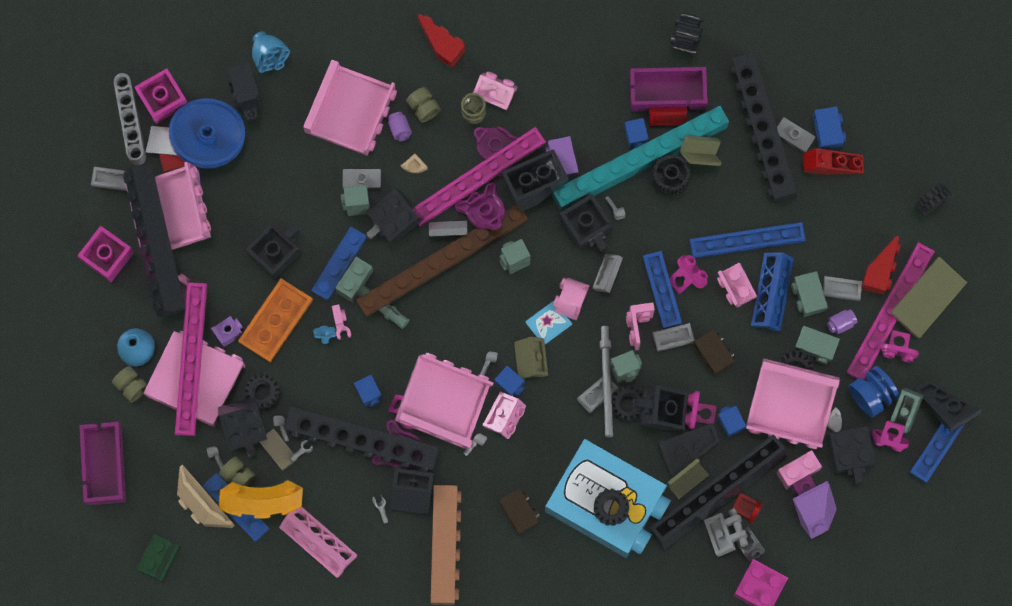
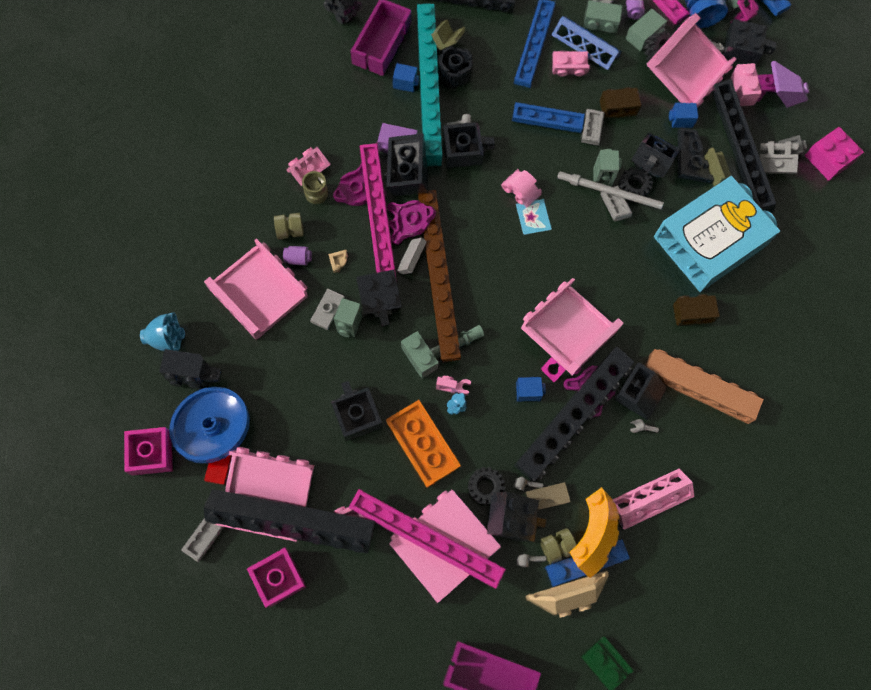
camera: 70 degrees left, 5 degrees down
(129, 110) = (144, 489): light grey beam -> none
(131, 385) = (421, 612): olive wheel -> none
(139, 353) = (389, 600): dark azure piece -> none
(159, 141) = (192, 473): white sticker -> none
(227, 337) = (415, 499): medium lavender brick -> none
(301, 451) = (559, 474): light grey hand -> none
(339, 263) = (396, 363): blue plate -> none
(444, 45) = (241, 188): red slope -> none
(478, 439) = (613, 316): light grey hand -> none
(490, 357) = (544, 275): light grey hand -> none
(504, 415) = (601, 284): bright pink bracket -> none
(510, 382) = (575, 266): blue brick -> none
(514, 256) = (466, 210): sand green brick -> none
(531, 357) = (560, 242): olive panel -> none
(607, 273) = (514, 150): light grey plate -> none
(617, 496) = (744, 216): black tyre -> none
(642, 313) = (572, 145): bright pink bracket -> none
(667, 116) = (403, 48): red tile -> none
(691, 272) = (541, 90): dark pink bracket -> none
(692, 417) = (666, 133): dark pink bracket -> none
(747, 507) = (763, 133): red tile -> none

